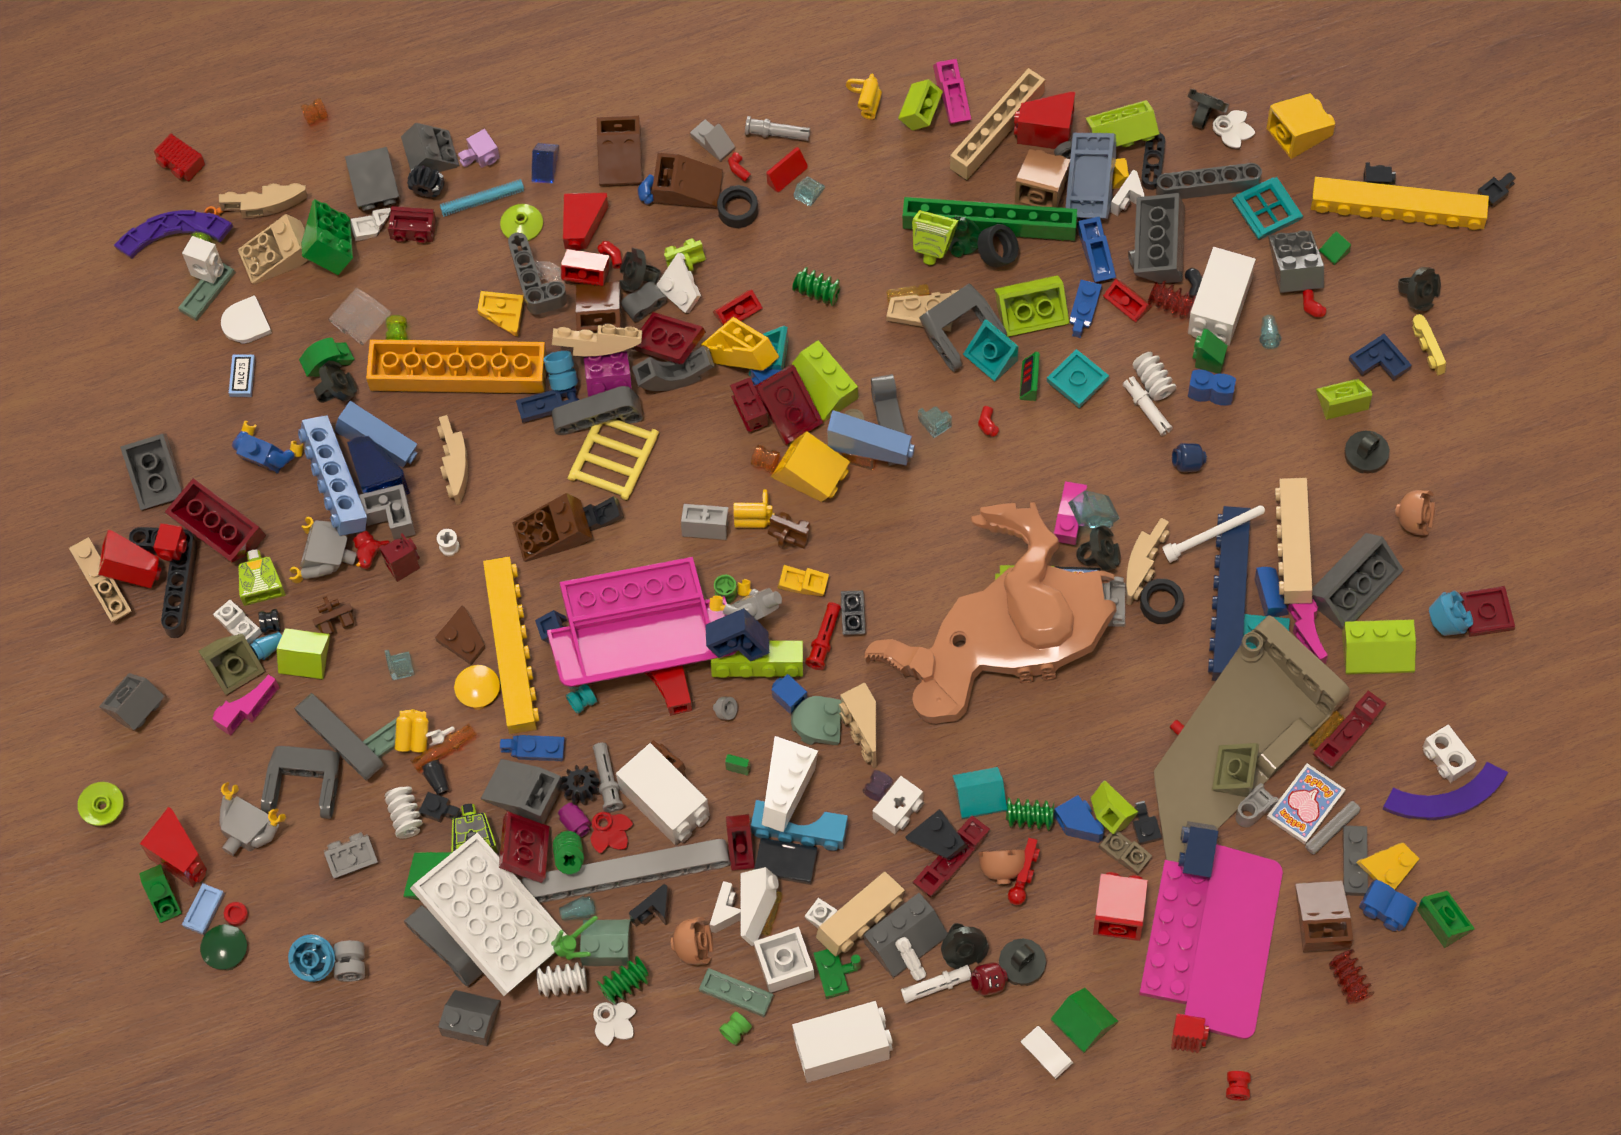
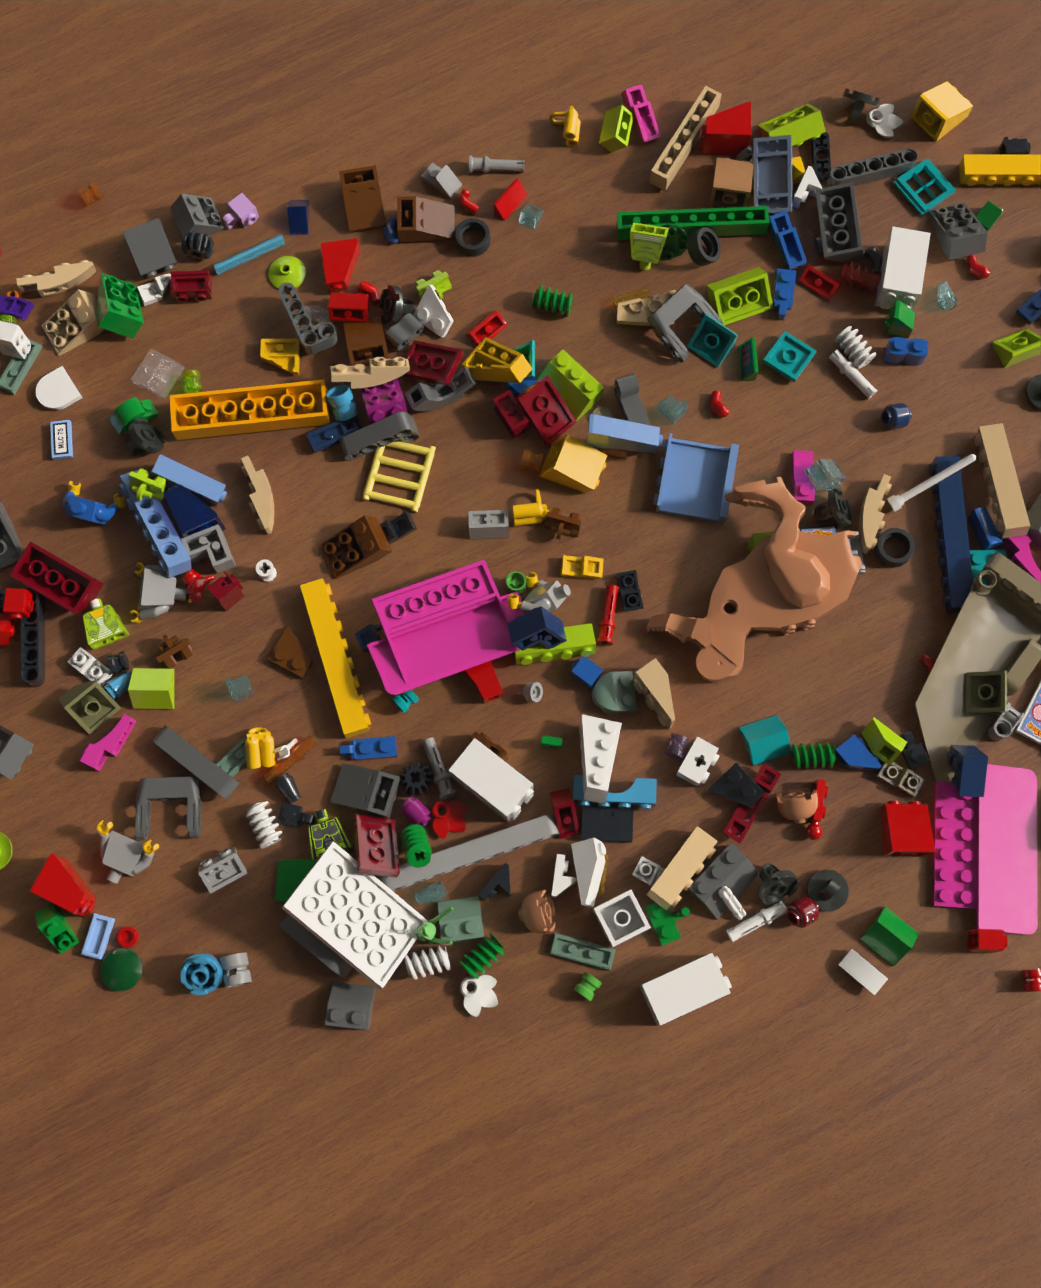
camera: 10 degrees left, 10 degrees up
(330, 434) = (146, 487): none -> lime hips
(477, 686) = (311, 699): yellow dish -> none
(944, 499) = (696, 479): none -> medium blue panel

